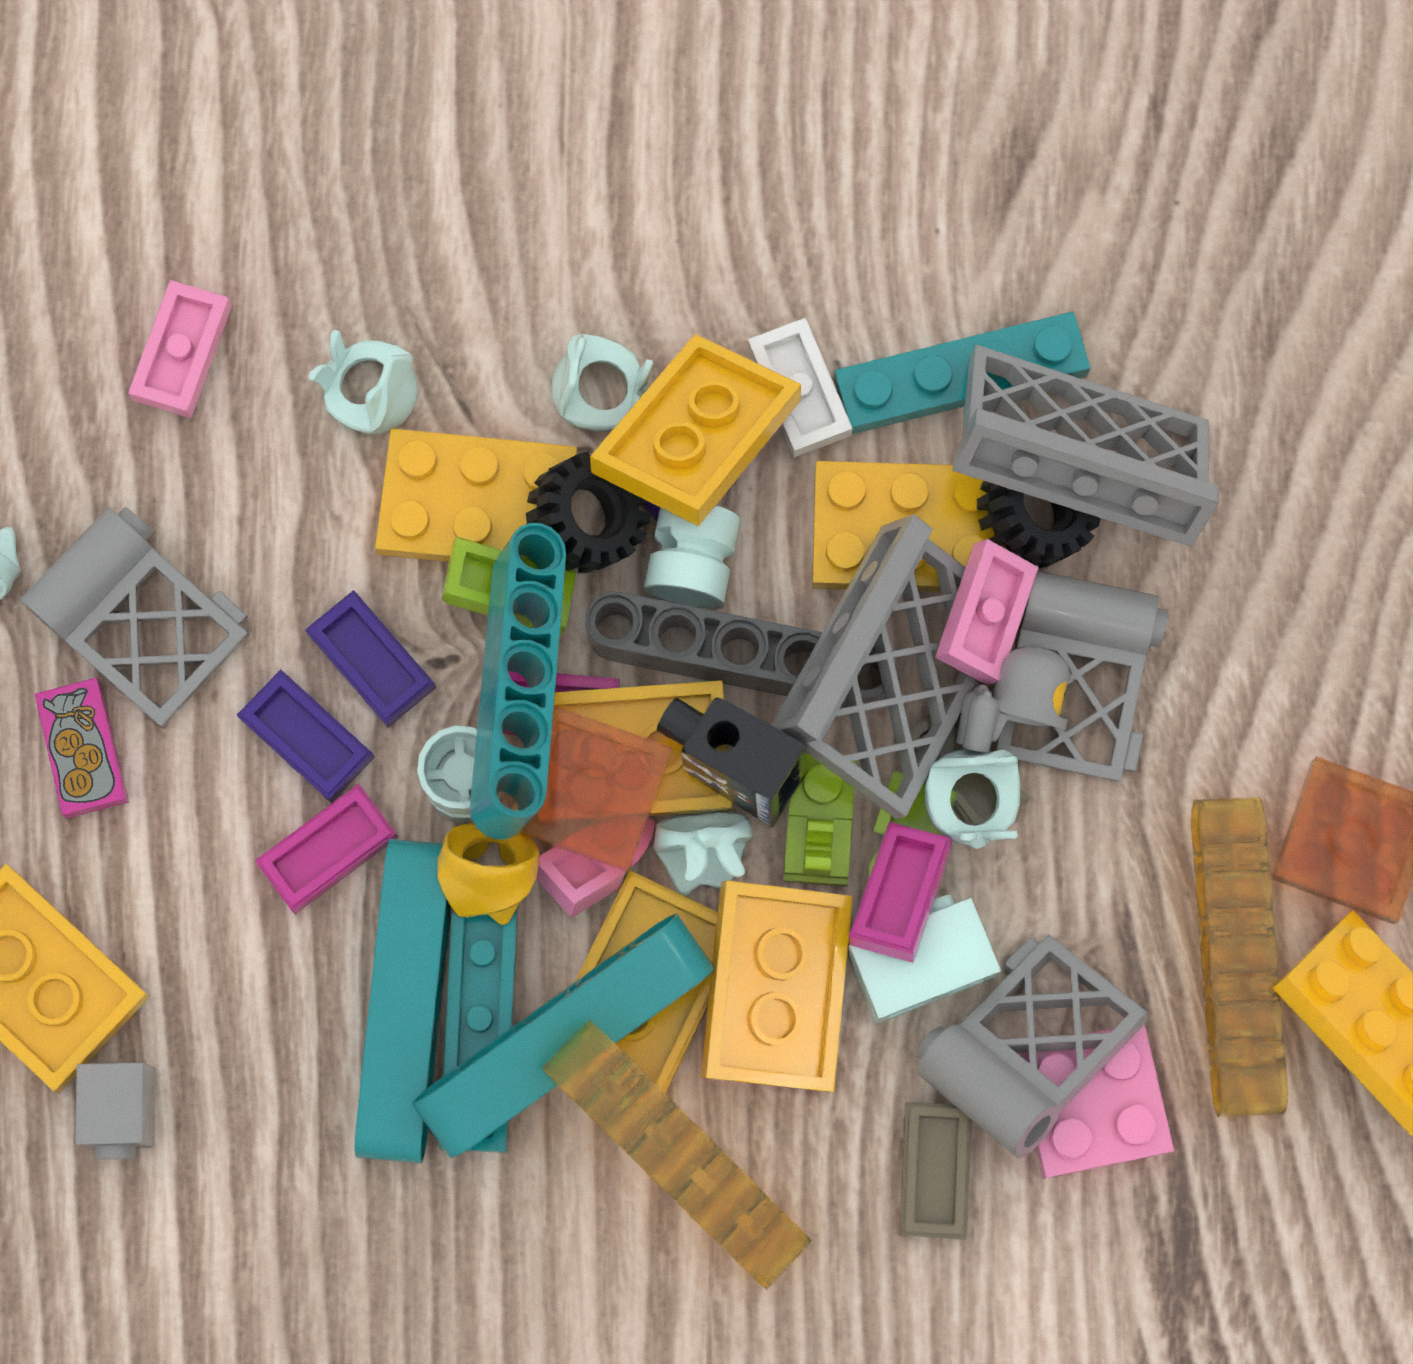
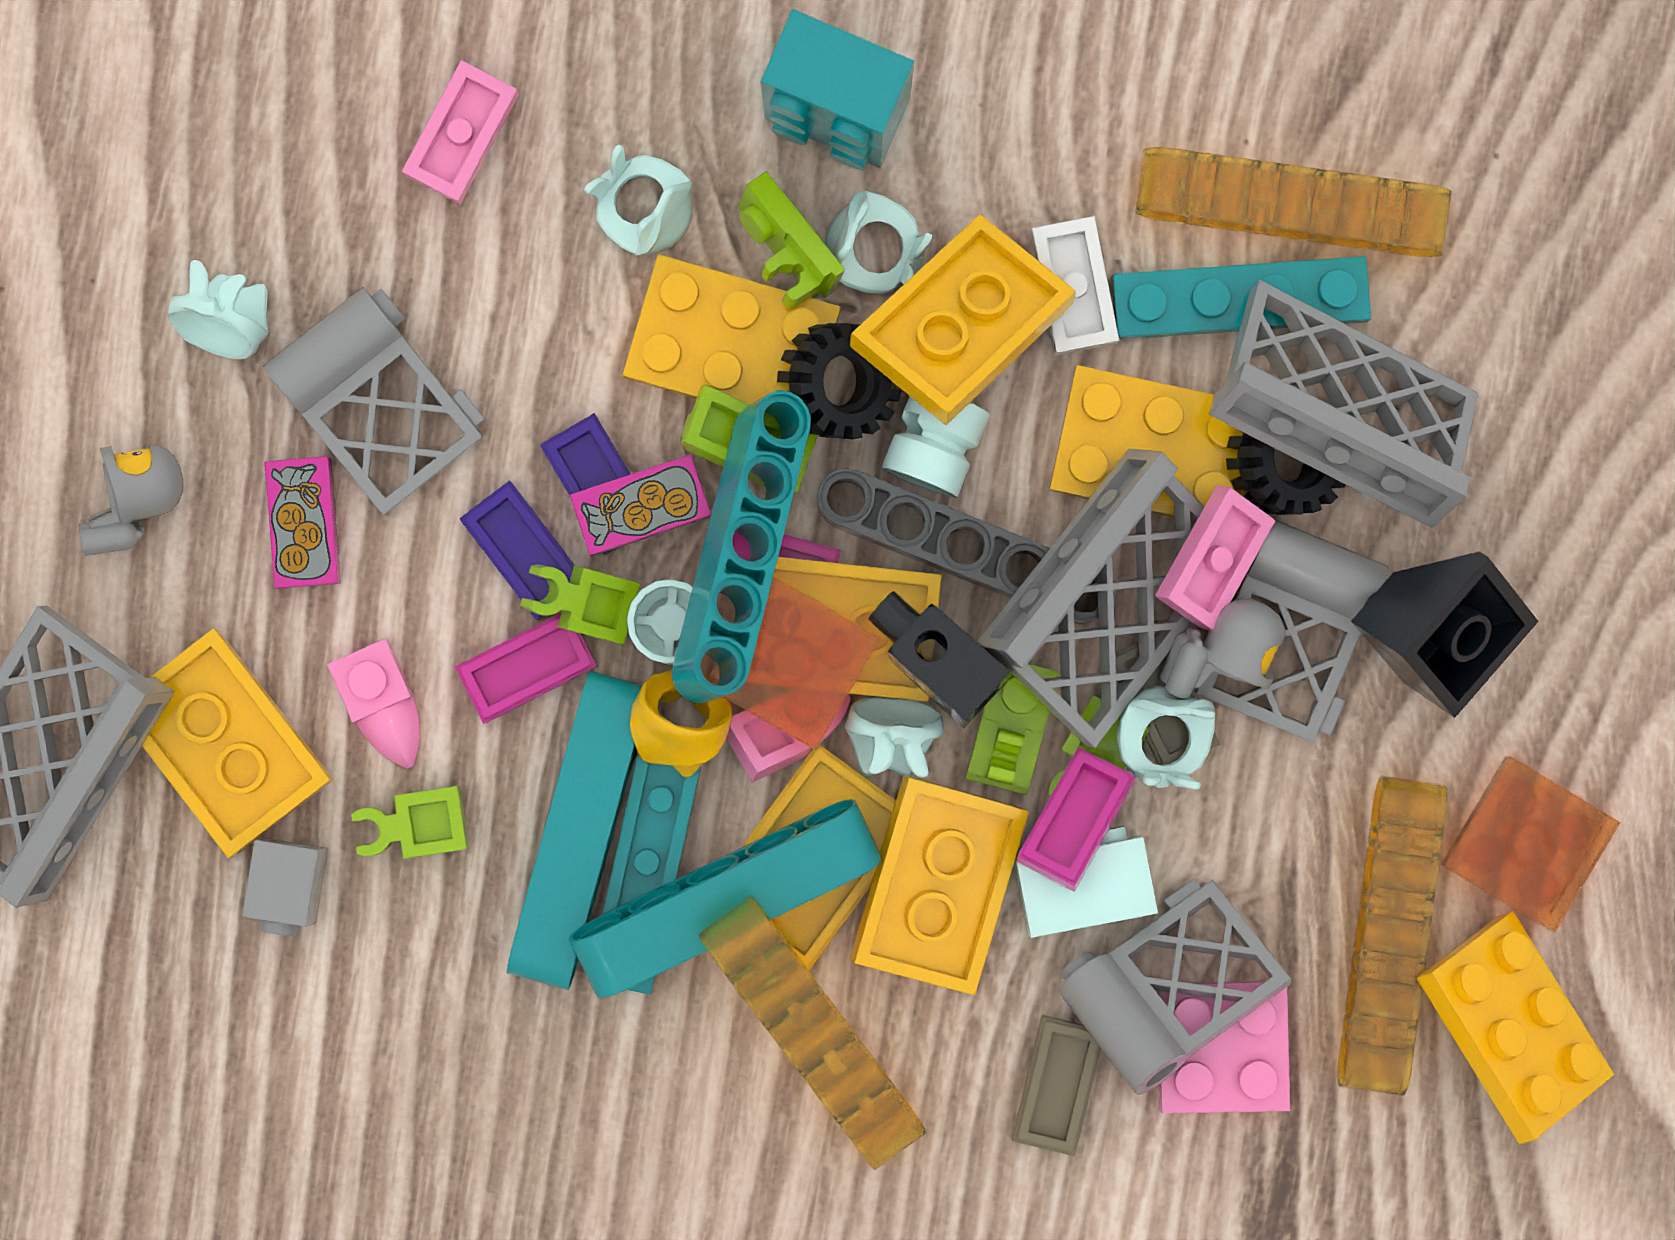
camera: 10 degrees right, 10 degrees up
(185, 909) = (379, 701): none -> bright pink plate
(247, 1021) = (423, 822): none -> lime plate
(380, 770) = (589, 603): none -> lime plate
(413, 667) = (640, 505): none -> tile
(517, 390) = (796, 247): none -> lime plate
(534, 234) = (835, 90): none -> teal brick
(993, 273) = (1293, 202): none -> clear yellow beam
(1226, 637) = (1446, 626): none -> black slope

